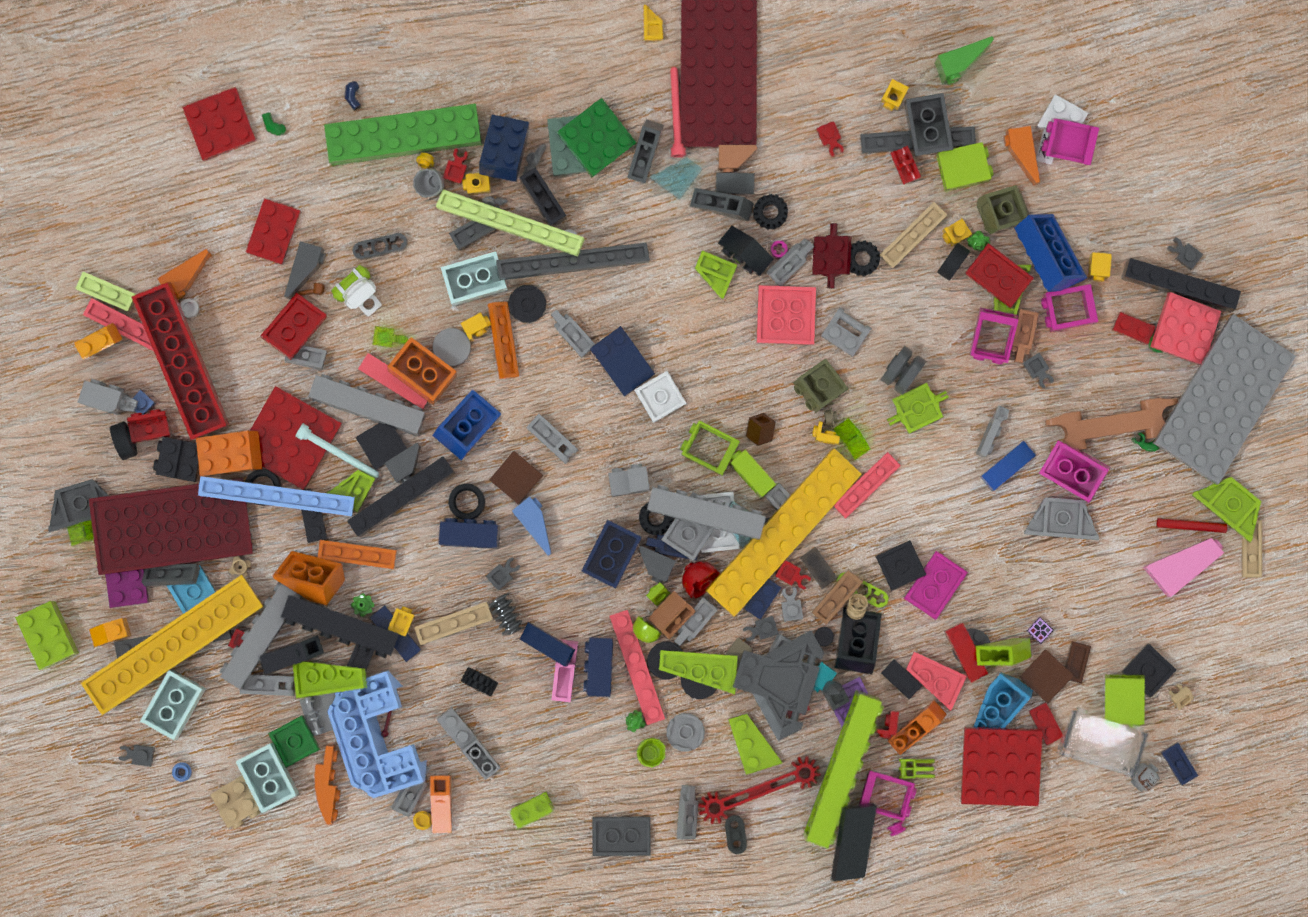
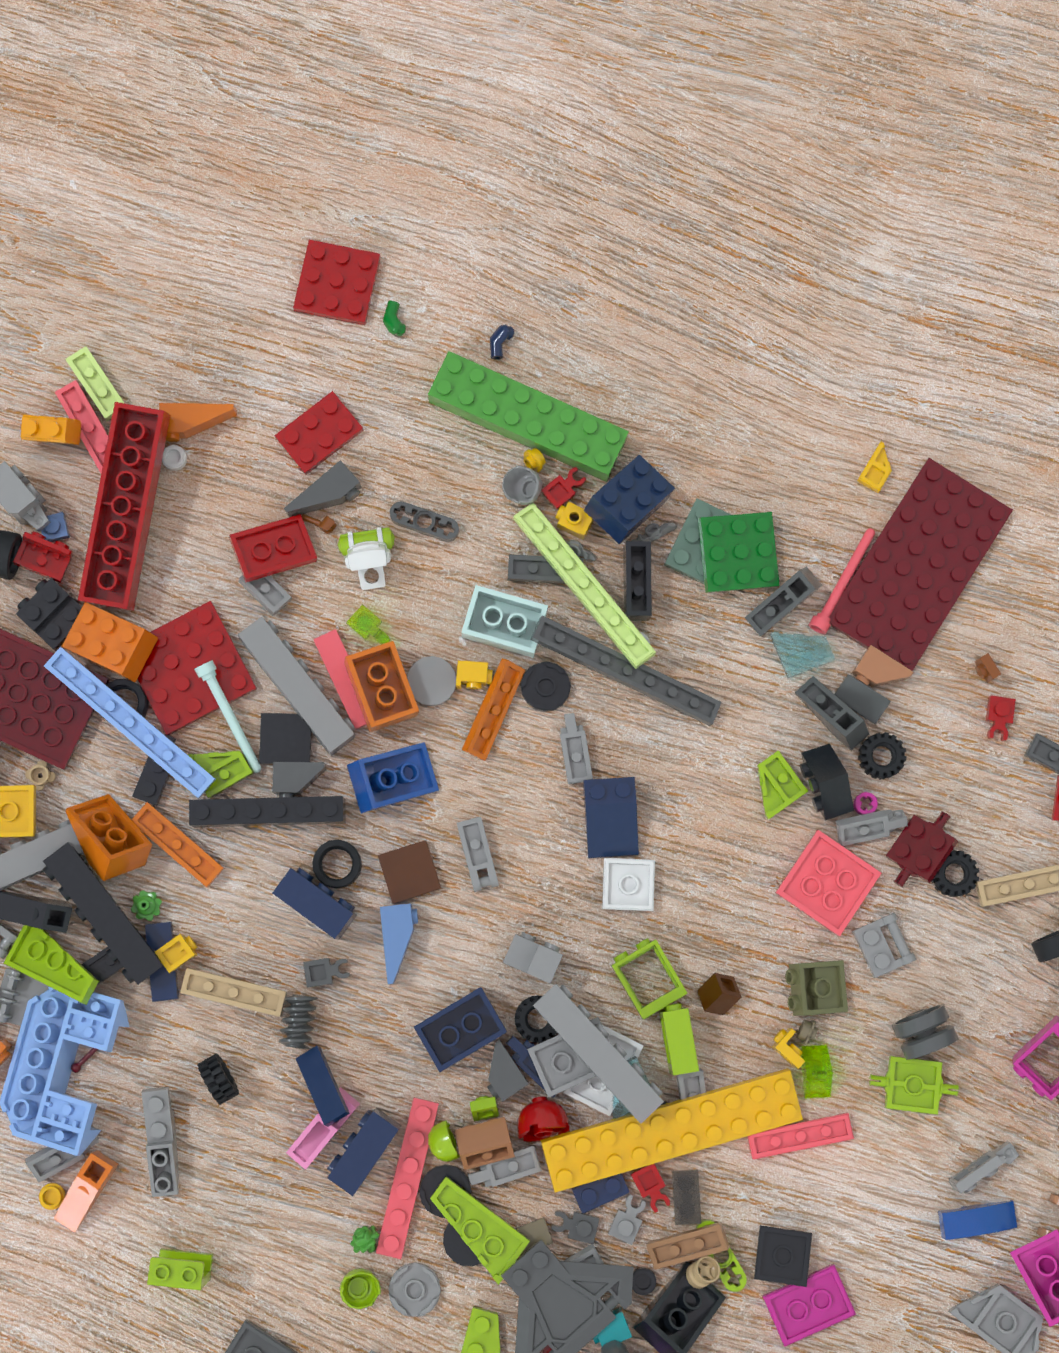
camera: 25 degrees right, 5 degrees down
(802, 112) = (987, 668): none -> dark orange plate

